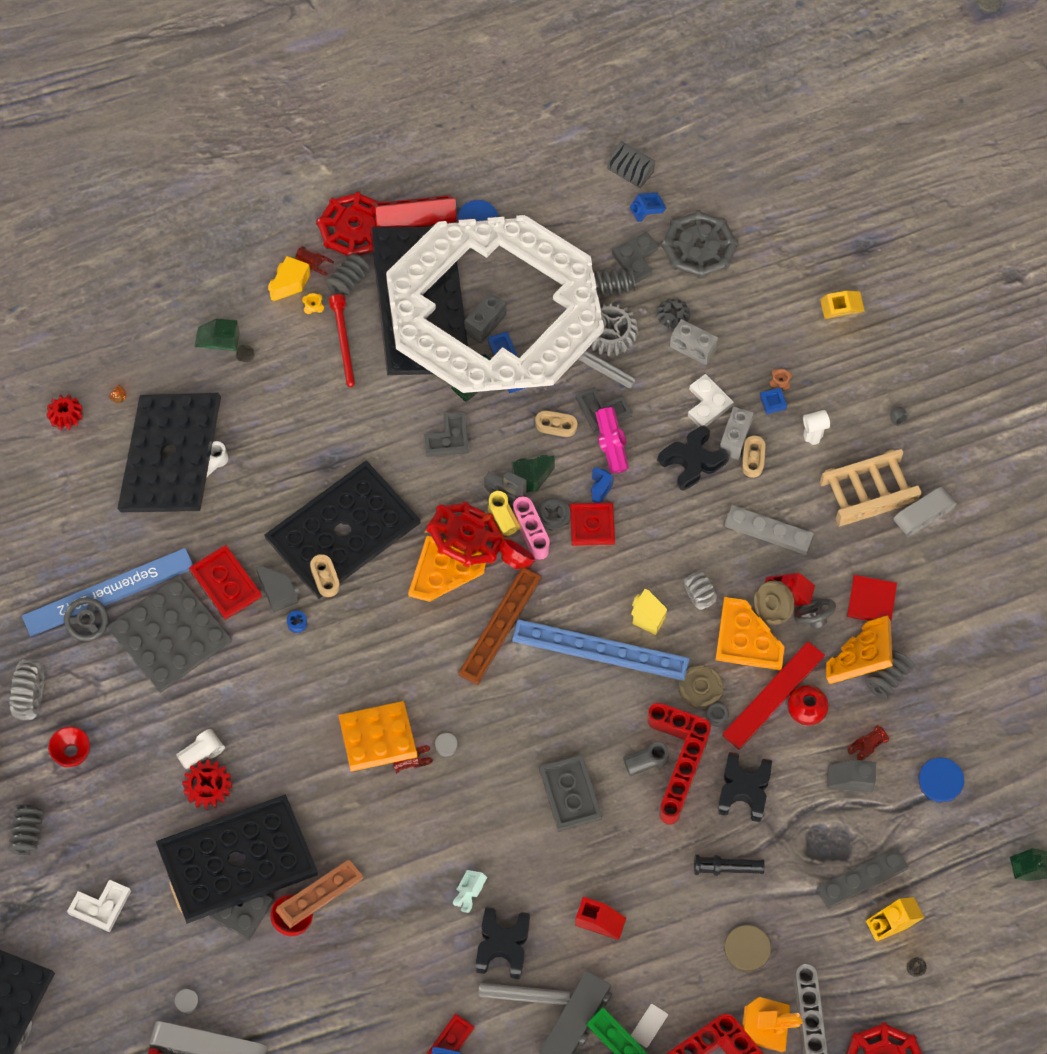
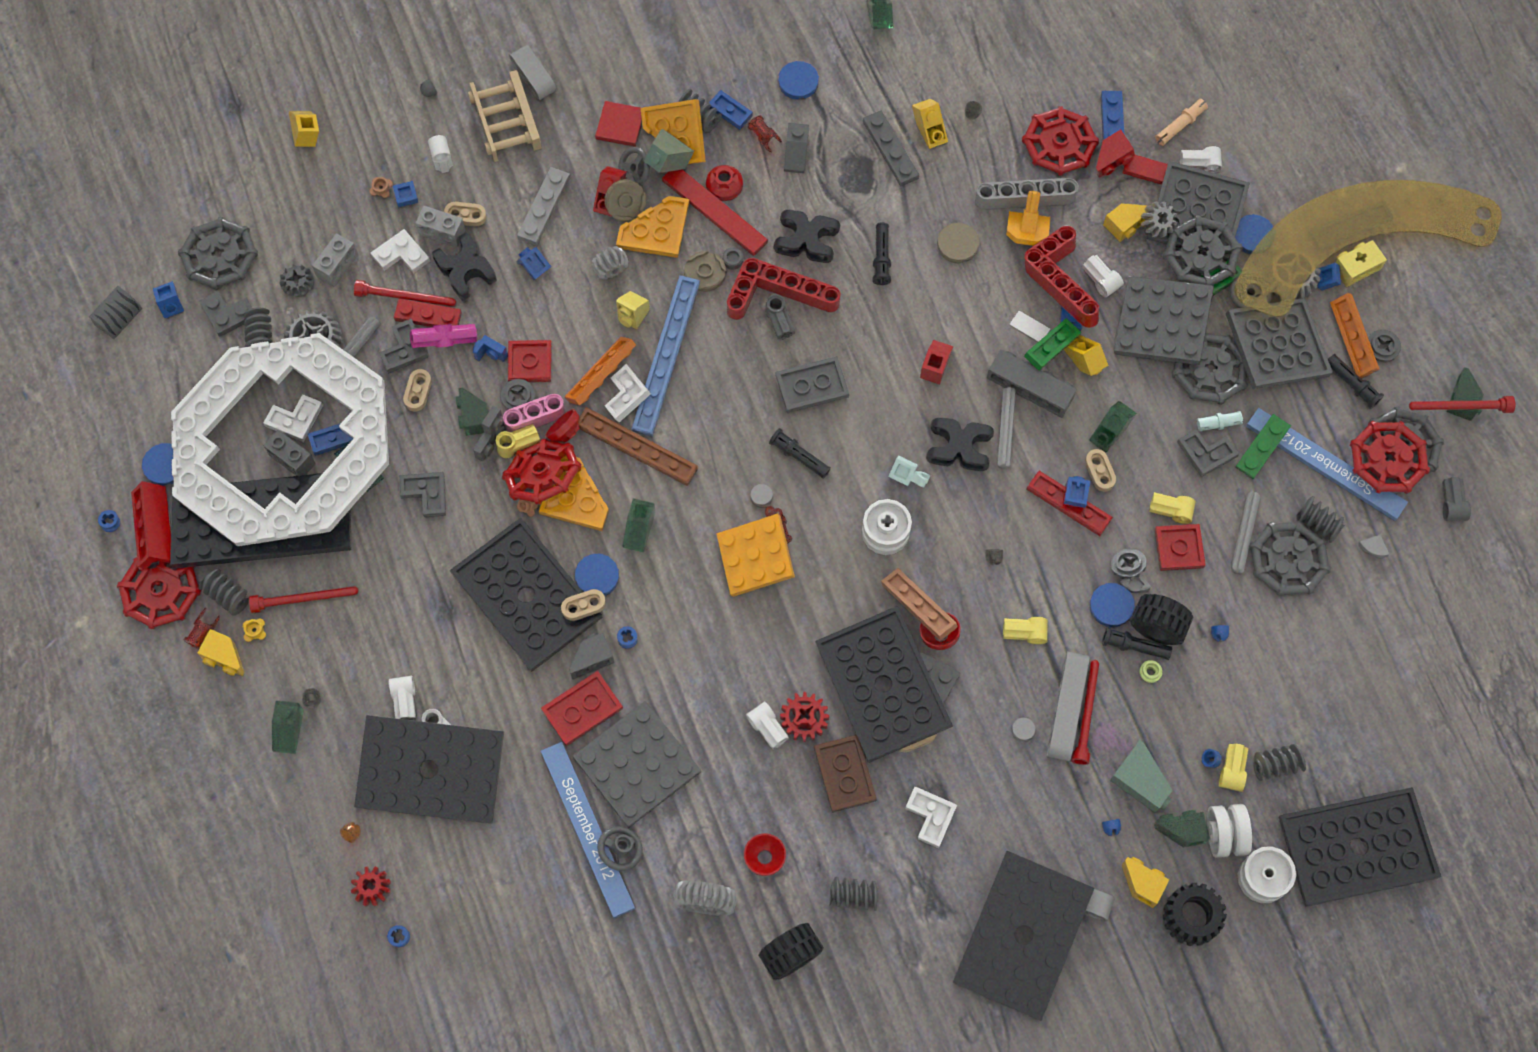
camera: 90 degrees left, 5 degrees up
(22, 444) = (405, 932): none -> blue bush
(146, 822) = (845, 773): none -> reddish brown plate
(247, 427) = (403, 693): none -> white piece
(292, 1010) = (1032, 630): none -> light yellow piece
(362, 592) = (597, 573): none -> blue tile
(375, 976) = (994, 556): none -> clear smoke hinge
(406, 850) = (886, 527): none -> white wheel
(411, 626) = (638, 525): none -> clear green slope
(421, 186) = (107, 526): none -> blue bush
(497, 772) = (790, 446): none -> black pin
(520, 322) = (297, 423): none -> white plate
(554, 615) = (631, 393): none -> white plate
(584, 590) = (602, 368): none -> orange plate
(640, 429) = (426, 314): none -> red plate
(665, 369) = (363, 289): none -> red piece
(700, 520) = (533, 262): none -> blue bracket
(828, 638) = (668, 153): none -> sand green slope
(895, 708) = (731, 109): none -> blue plate

